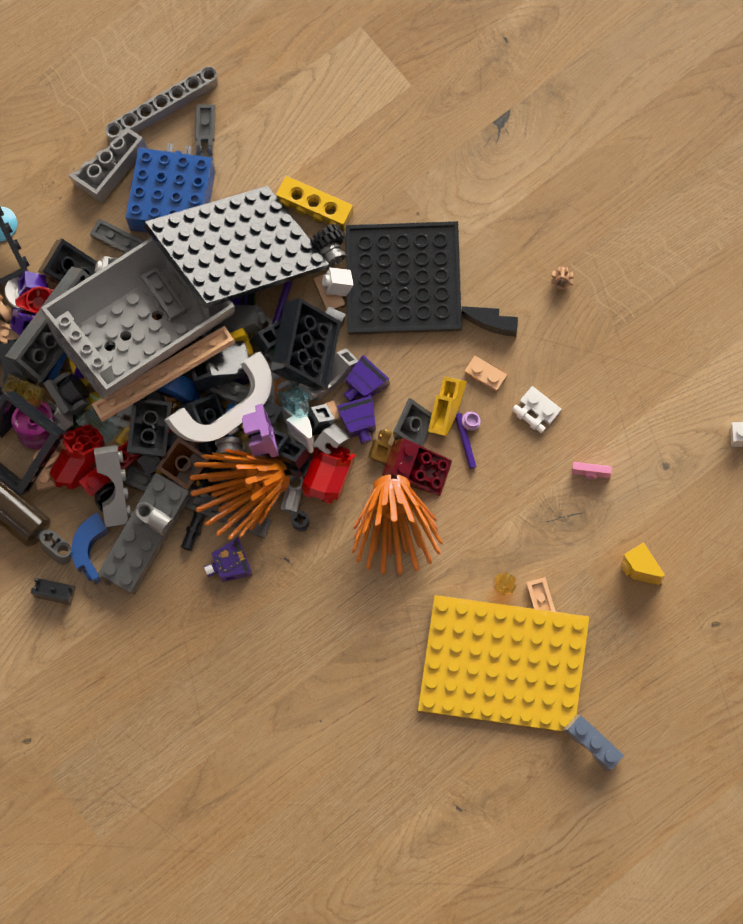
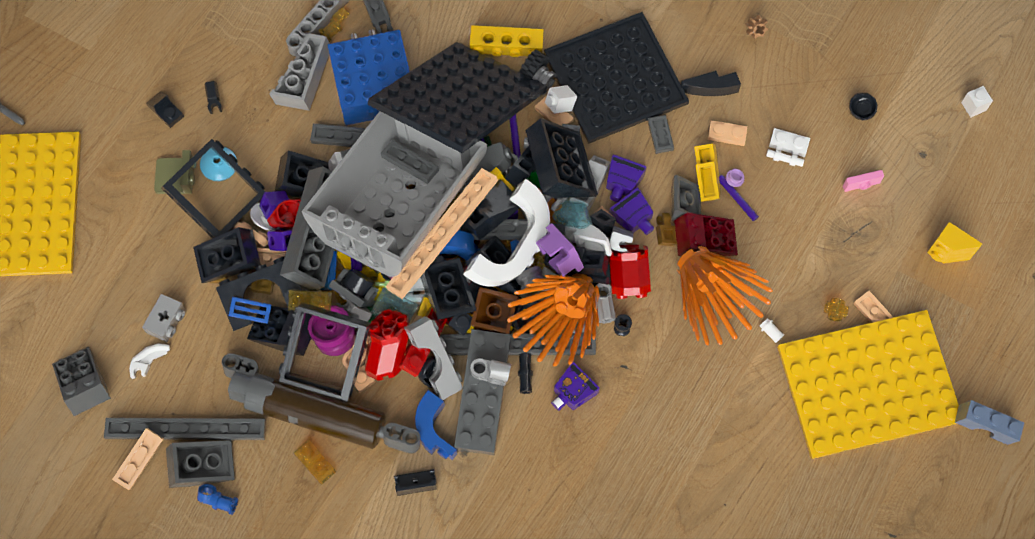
camera: 30 degrees left, 5 degrees down
(18, 156) = (212, 96): none -> black bar
(157, 128) = (334, 26): none -> clear yellow connector
(420, 351) = (660, 134): none -> dark grey plate
(436, 579) = (771, 330): none -> white pin
(626, 397) = (863, 106): none -> black hair

